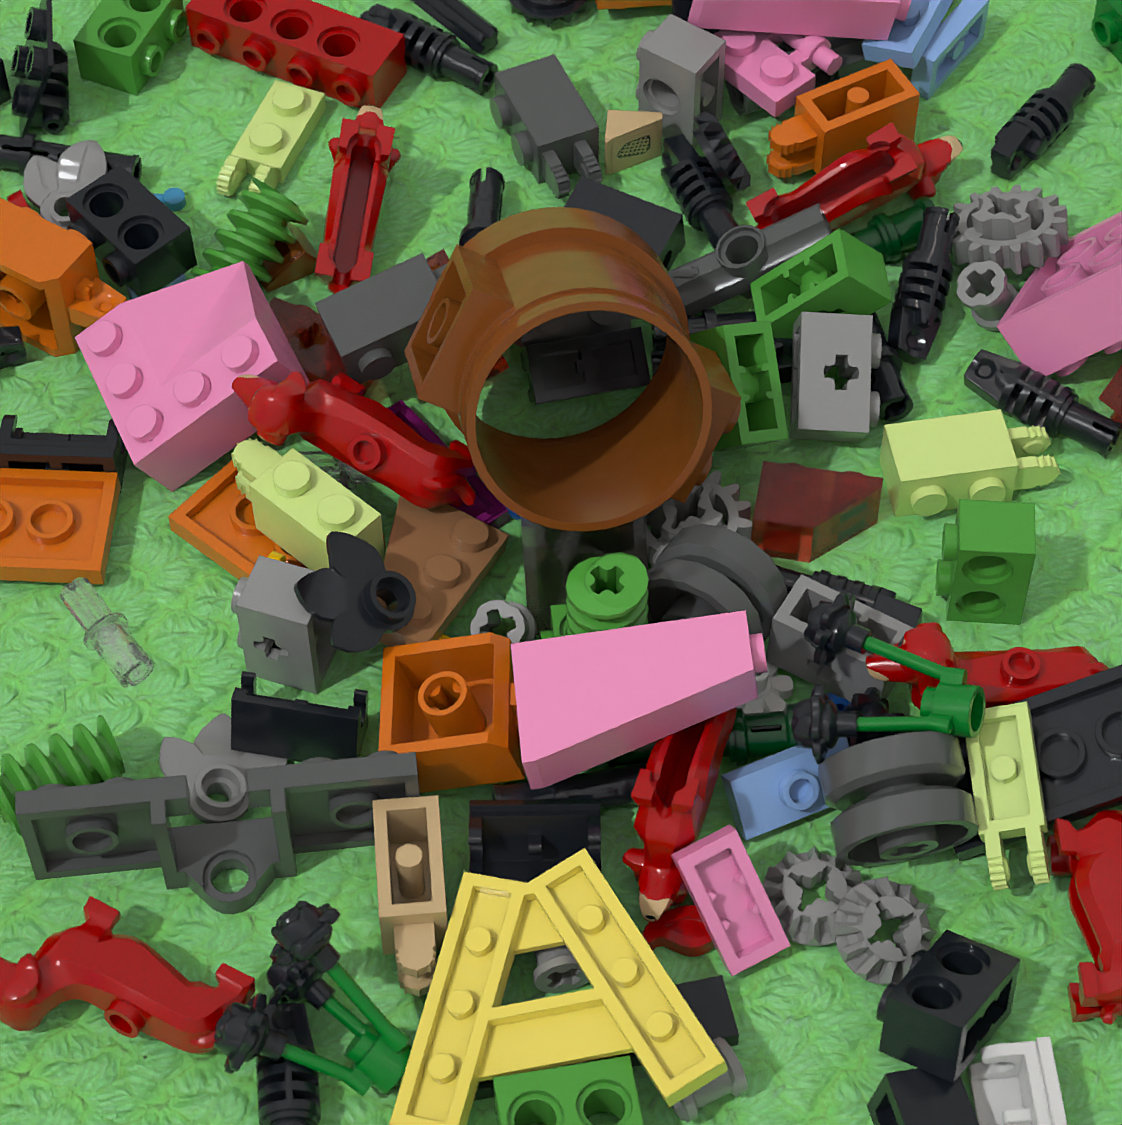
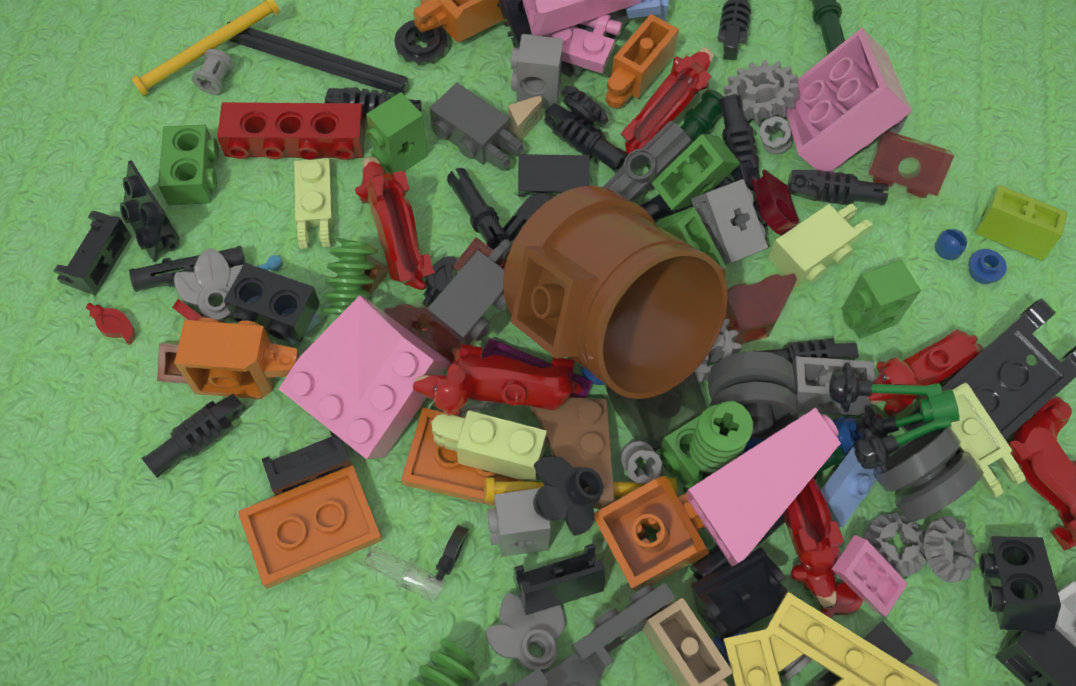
camera: 30 degrees left, 10 degrees up
(184, 630) = (452, 551): none -> black piece
(426, 91) = (397, 134): none -> bright green brick
(922, 380) = (775, 203): none -> dark red piece

